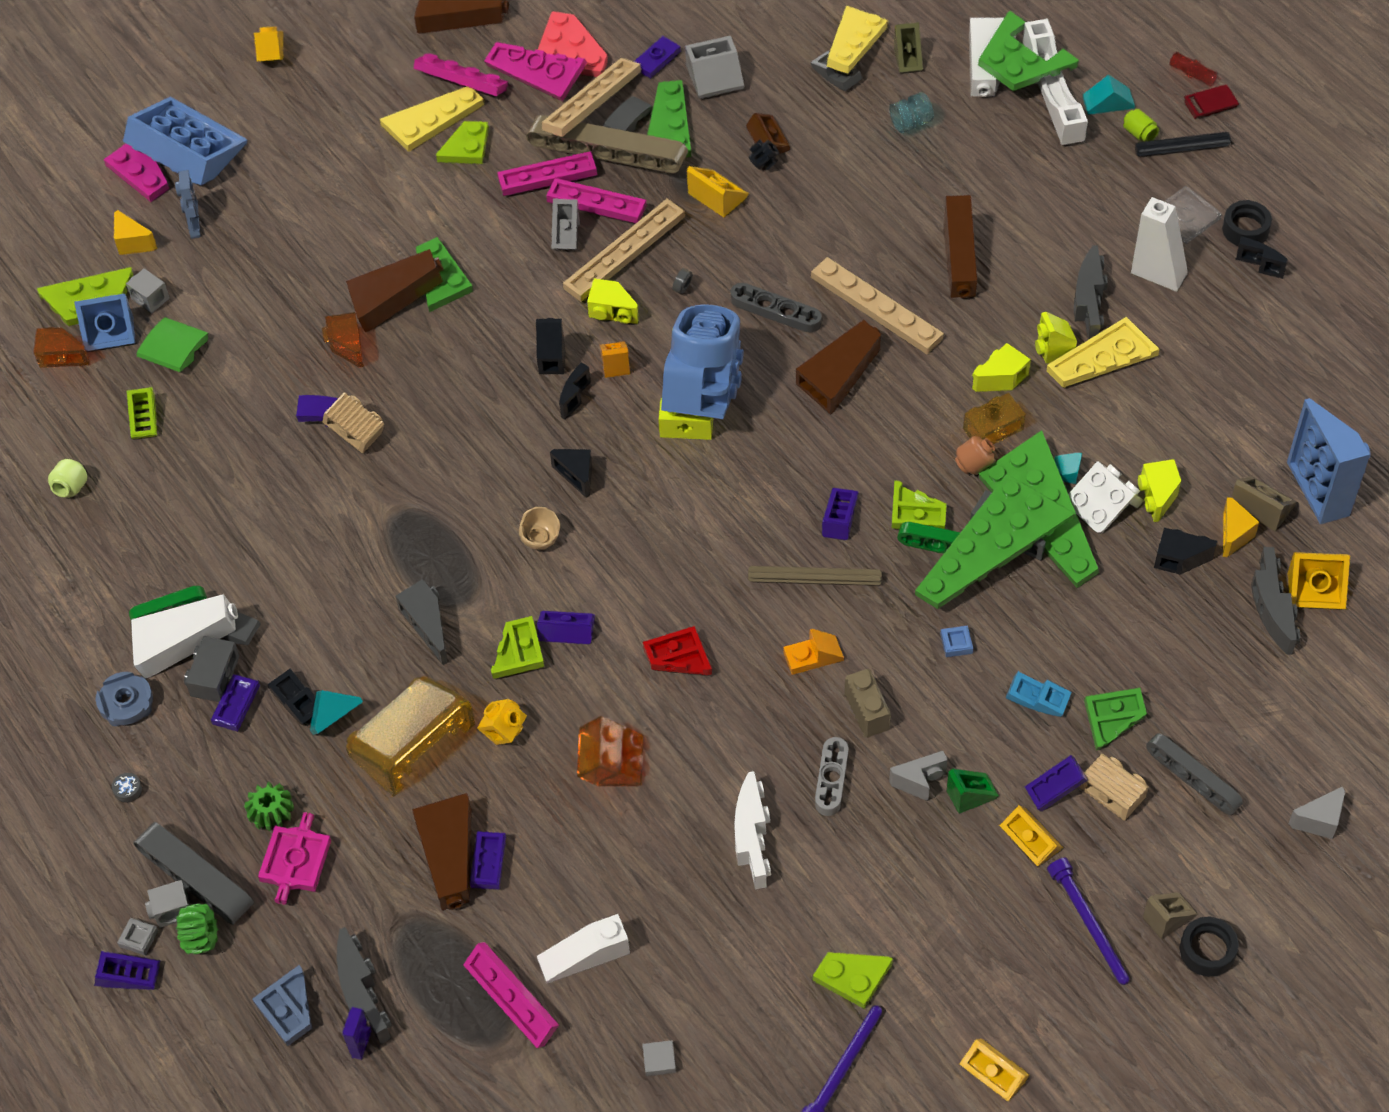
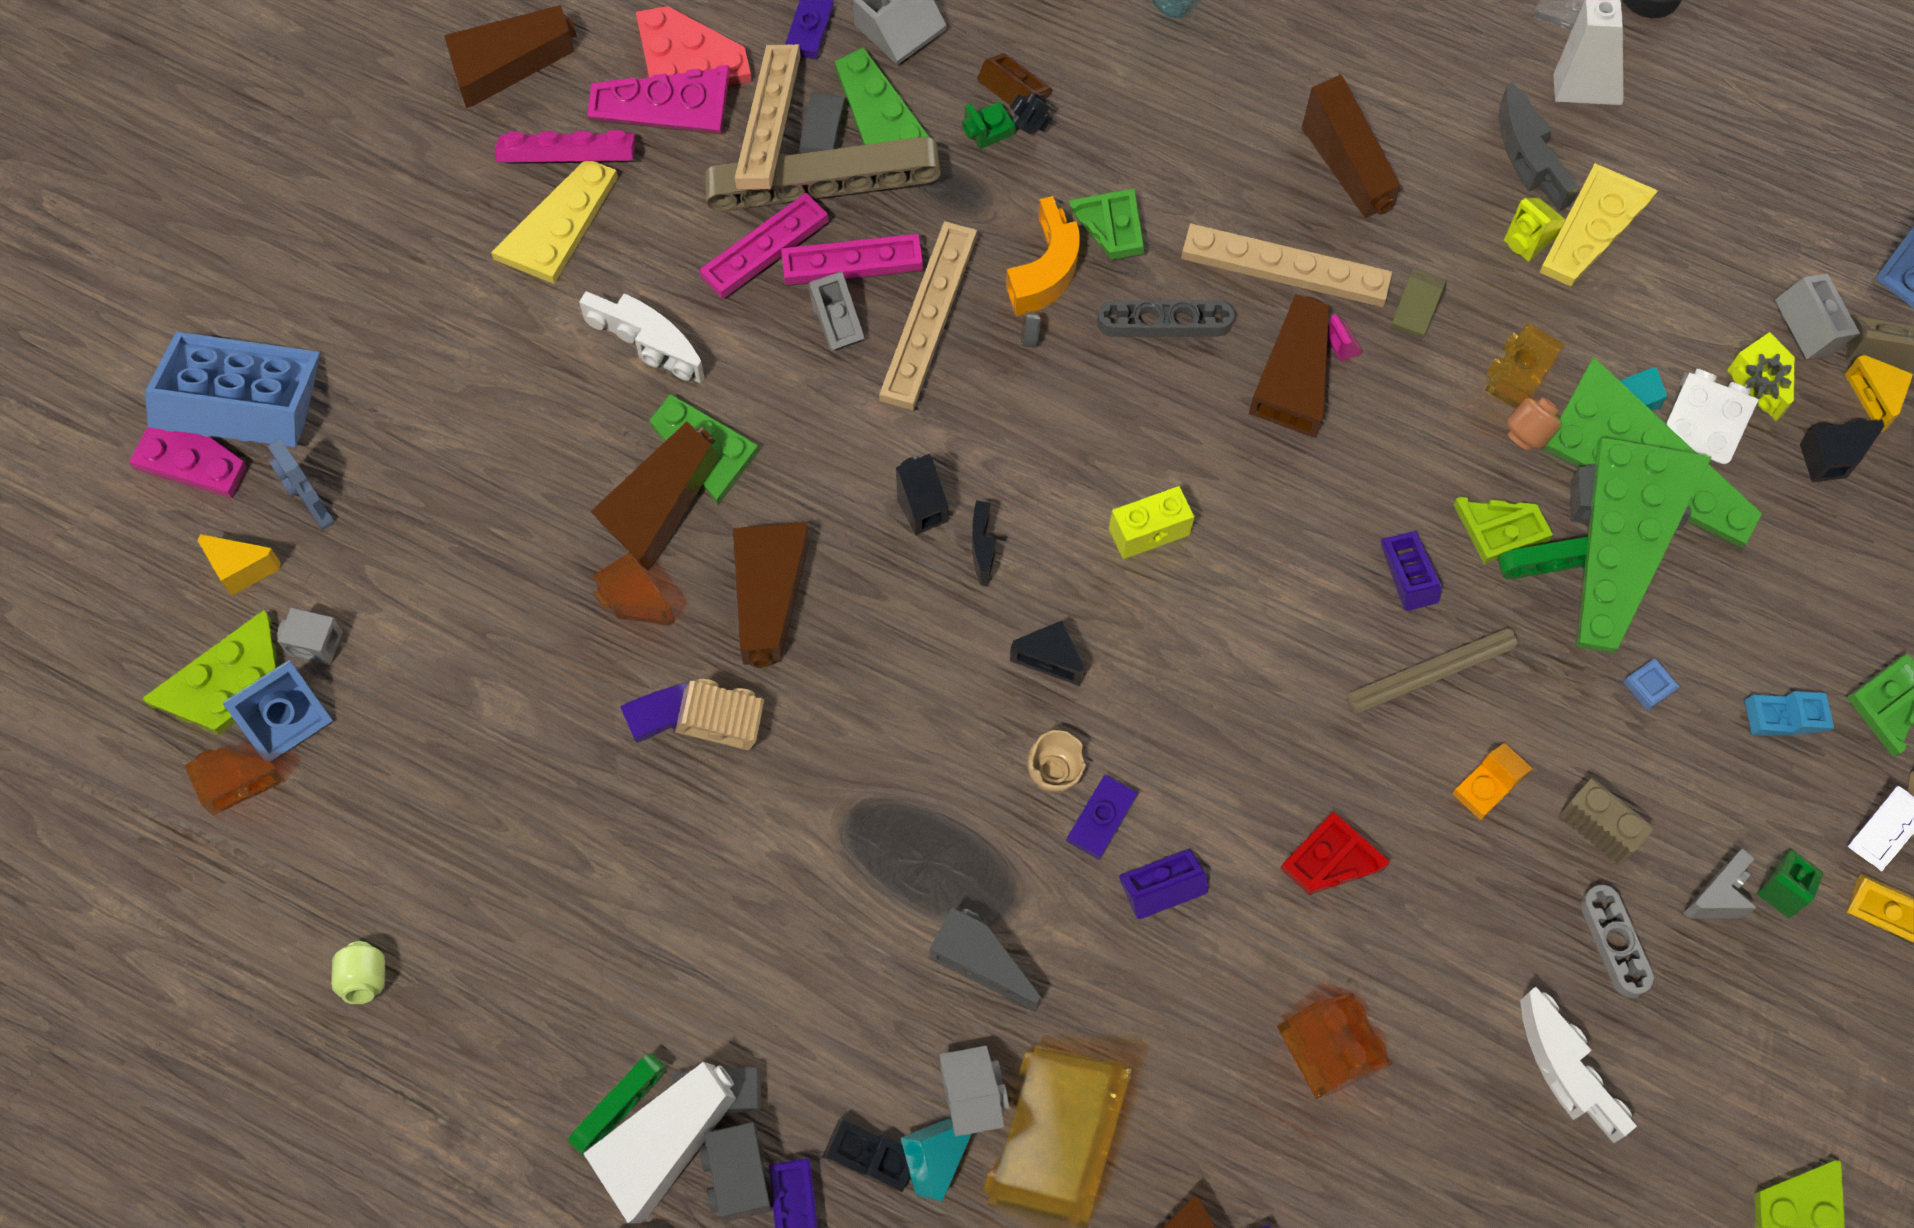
camera: 30 degrees left, 10 degrees up
(142, 395) = (394, 797): lime slope -> none
(172, 344) = (391, 702): bright green slope -> none
(269, 44) = (273, 200): yellow slope -> none
(371, 680) = (973, 1090): none -> light grey brick
(427, 365) = (767, 584): none -> reddish brown slope
(443, 194) = (655, 336): none -> white slope
(466, 144) = (629, 244): lime wing -> none
(502, 721) = (1173, 1064): yellow brick -> none
(518, 649) = (1126, 945): lime wing -> none
(550, 574) = (1102, 817): none -> dark purple plate
(611, 302) = (958, 396): neon yellow slope -> none
(615, 359) = (1006, 471): light orange slope -> none
(703, 362) = (1152, 441): medium blue brick -> none
(714, 190) = (995, 186): yellow slope -> none
(720, 252) = (1046, 279): none -> light orange arch
(733, 153) = (987, 124): none -> green bracket
(777, 238) = (1111, 222): none -> bright green wing
(885, 361) = (1342, 339): none -> dark pink slope
(950, 357) = (1418, 303): none -> olive slope
(1002, 371) = (1494, 294): neon yellow slope -> none
(1148, 481) = (1772, 367): none -> dark grey gear
(1217, 463) = (1817, 316): none -> light grey brick
(1257, 253) = (1705, 22): black slope -> none

